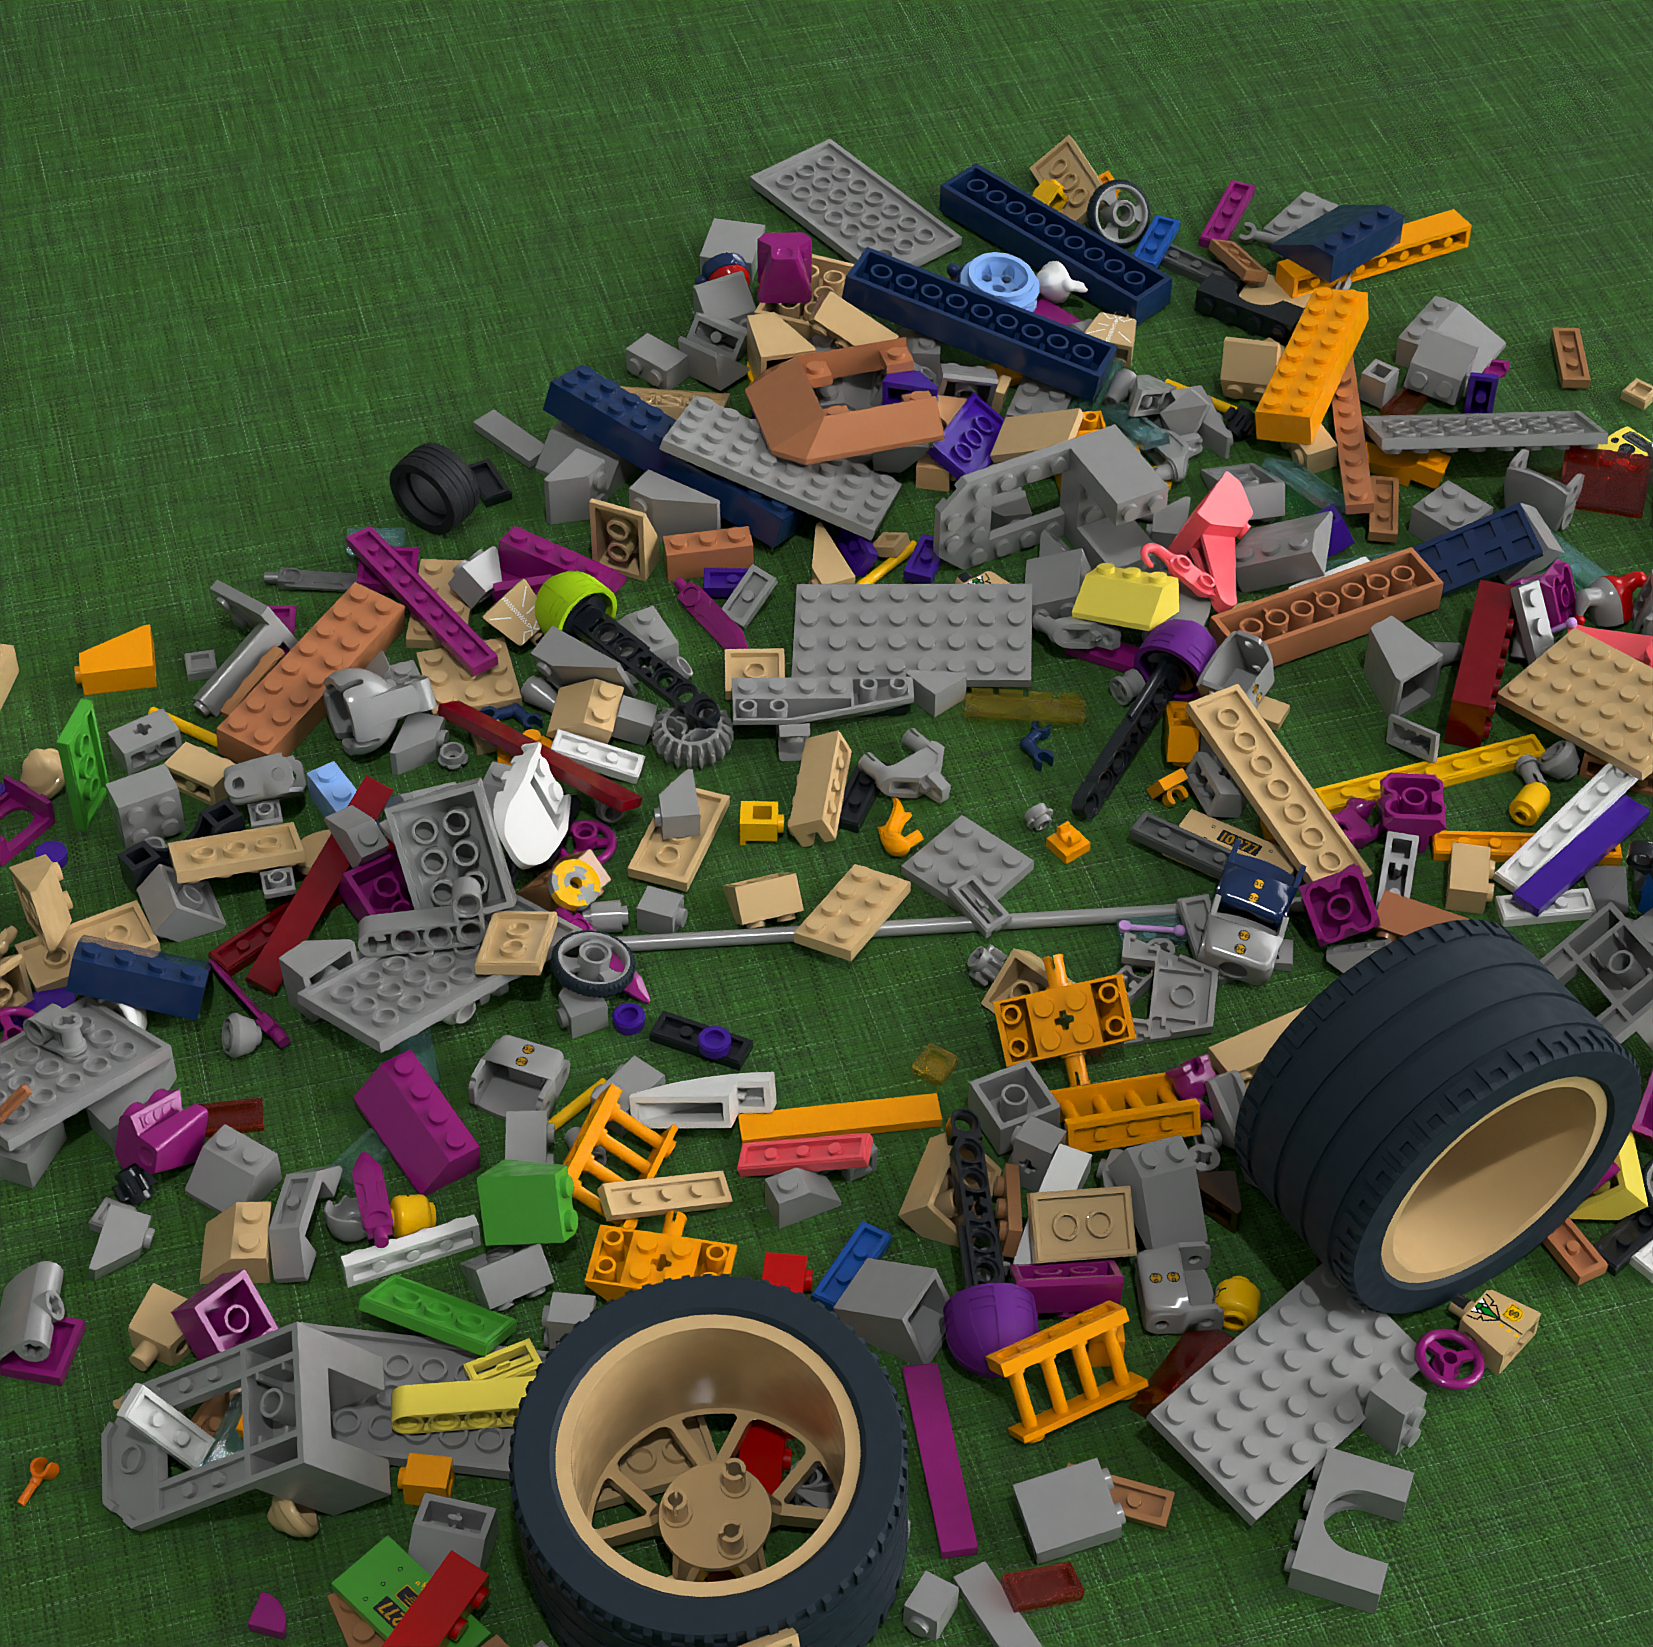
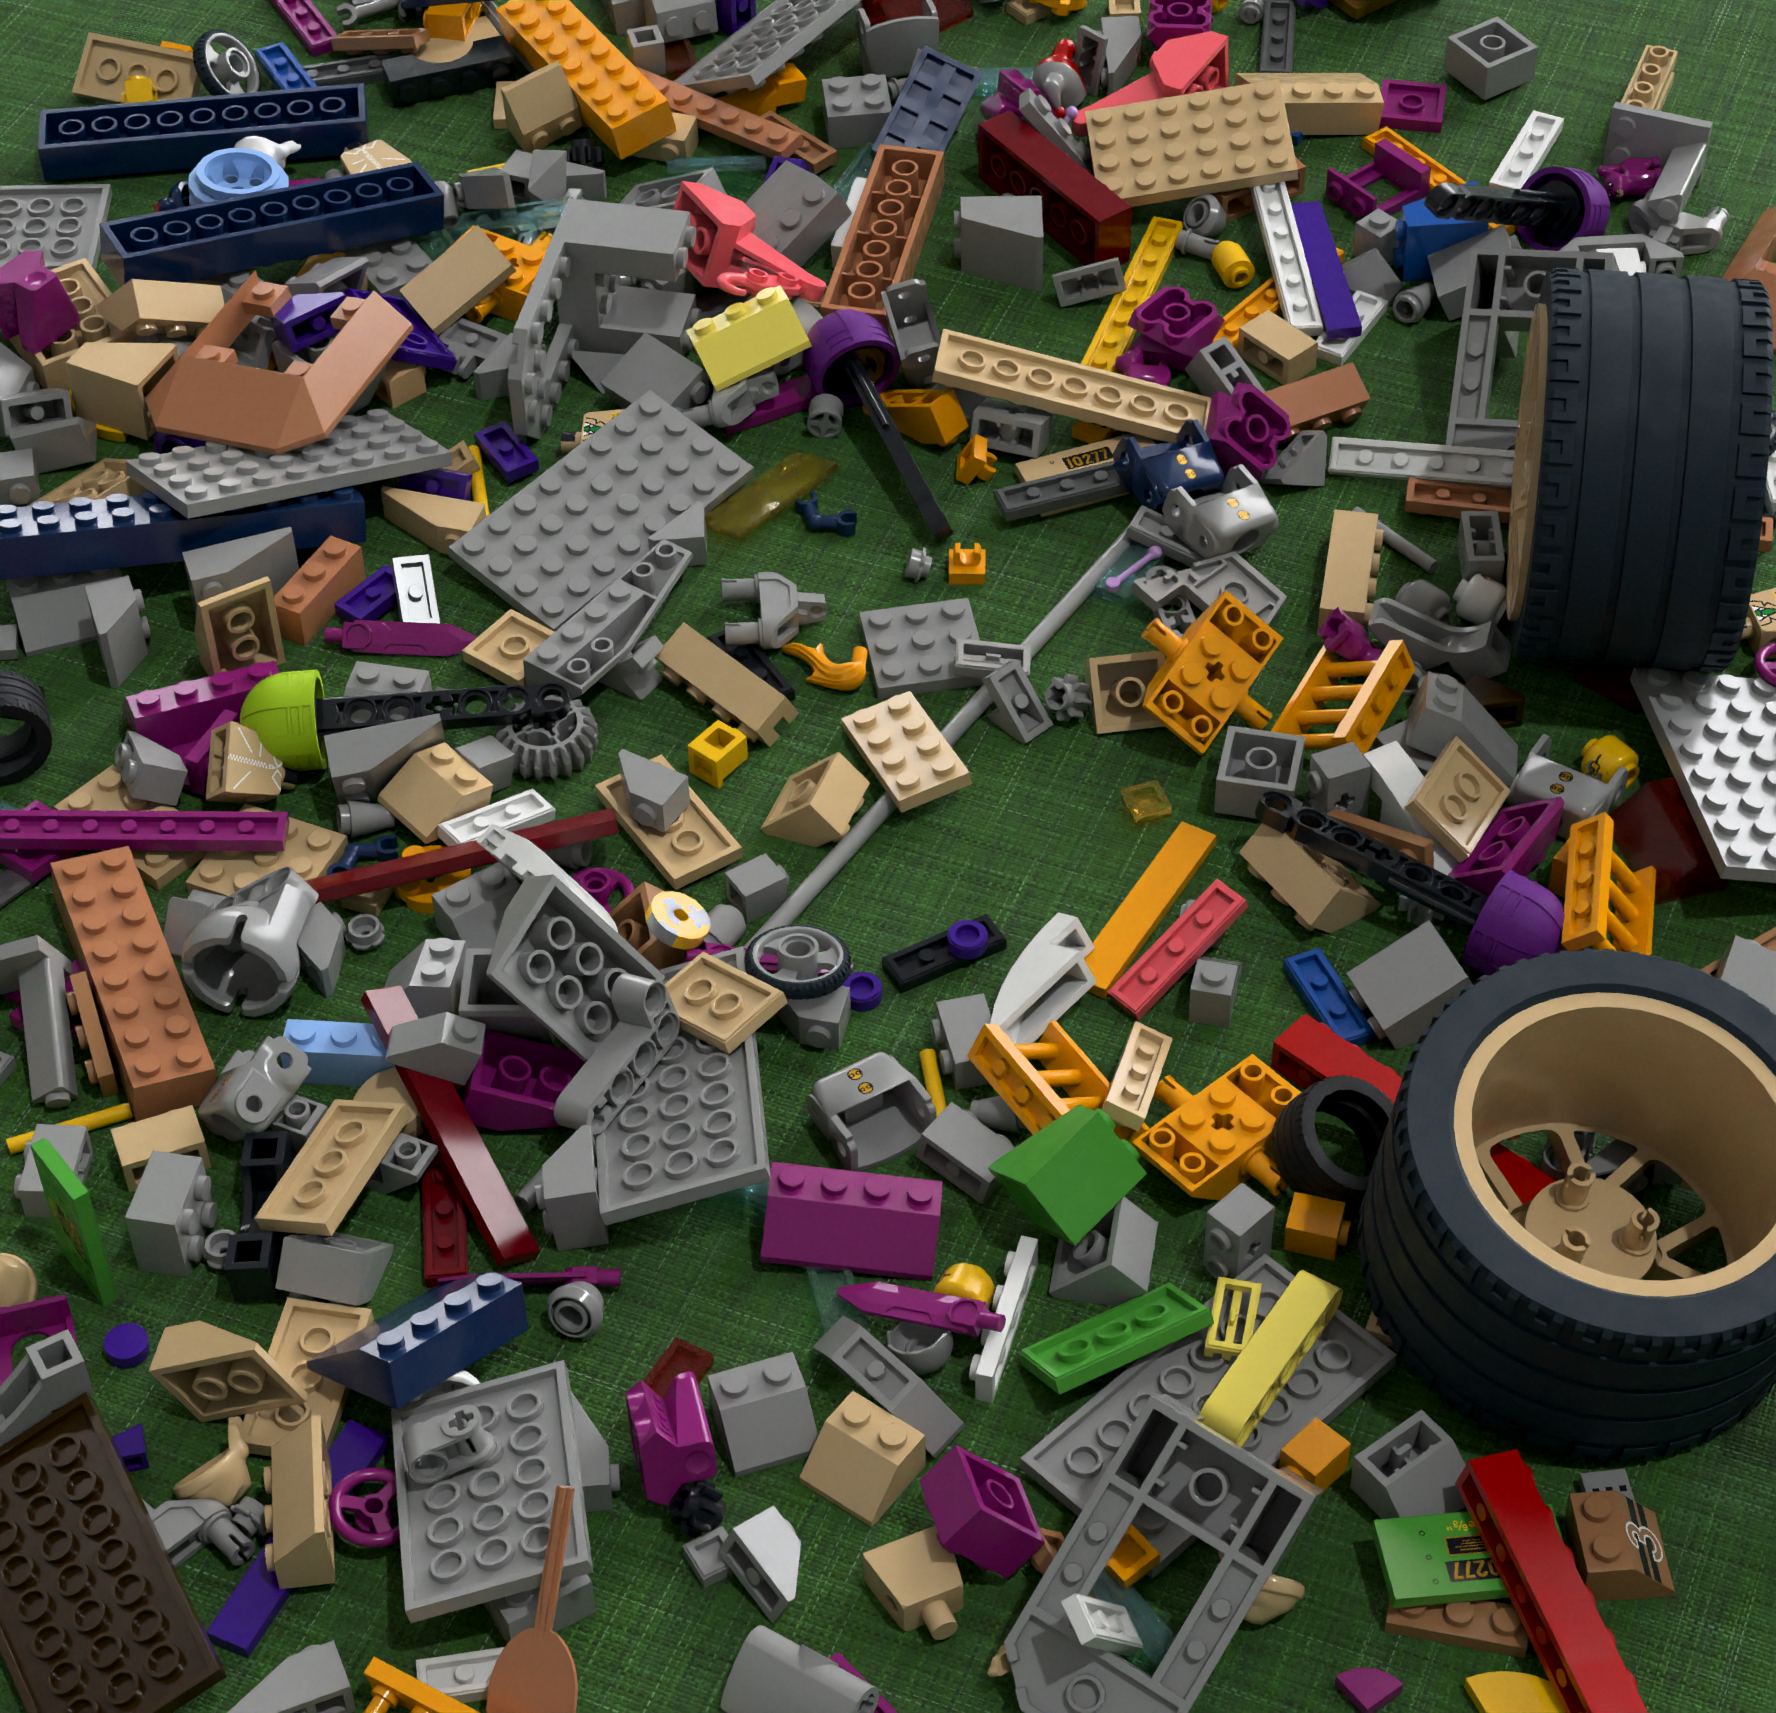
camera: 50 degrees left, 0 degrees up
(954, 941) = (1018, 705): none -> light grey slope

